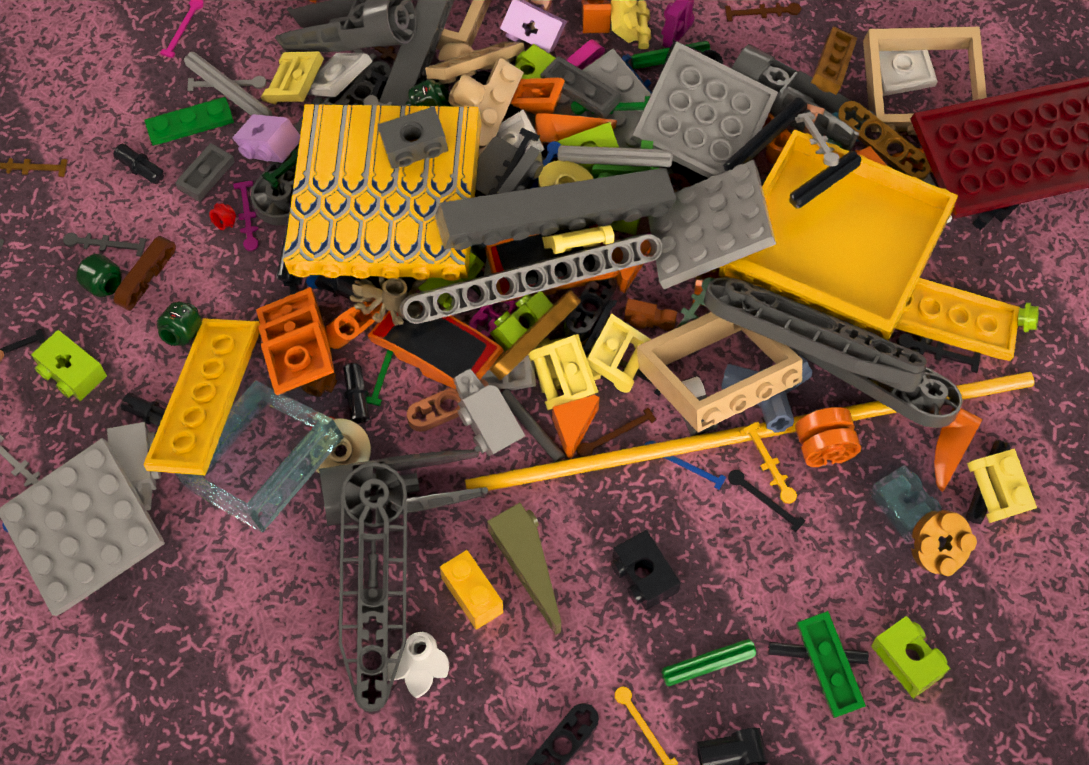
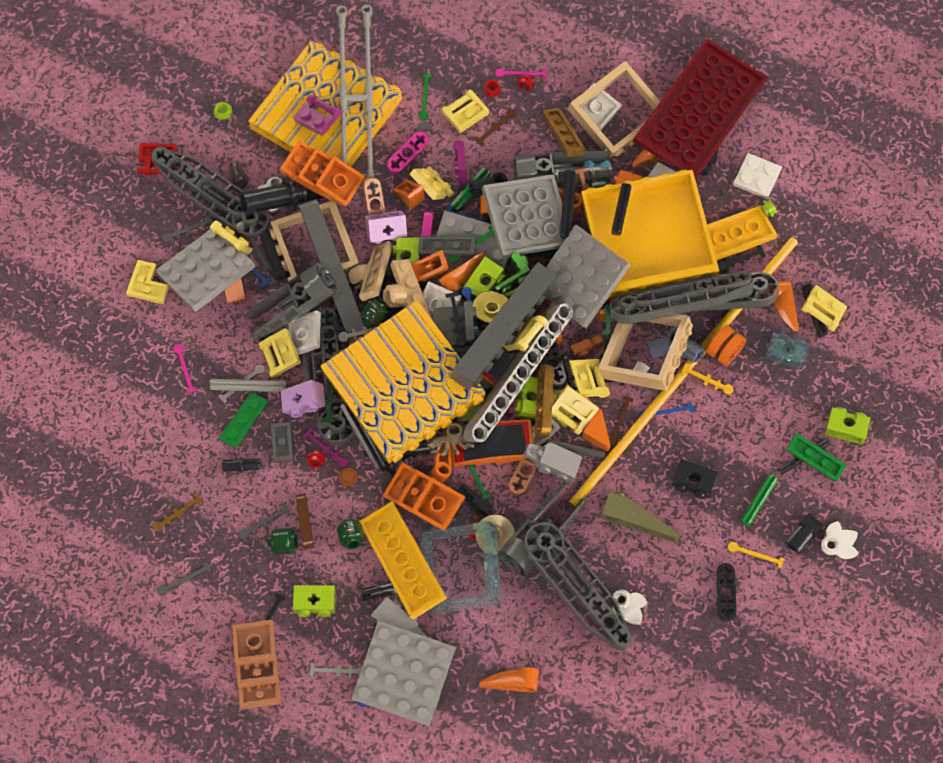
camera: 35 degrees left, 5 degrees up
(201, 641) = (515, 680): none -> orange piece
(239, 261) = (348, 477): none -> dark orange plate
(419, 125) = (402, 332): dark grey brick -> none
(471, 589) = (622, 552): yellow brick -> none
(615, 156) = (505, 274): light grey axle -> none
(736, 478) = (696, 399): black piece -> none
(830, 158) = (617, 196): light grey piece -> none
(887, 137) = (625, 158): pearl gold beam -> none
(958, 542) = (827, 354): plate -> none
(1046, 272) = (757, 176): none -> white plate

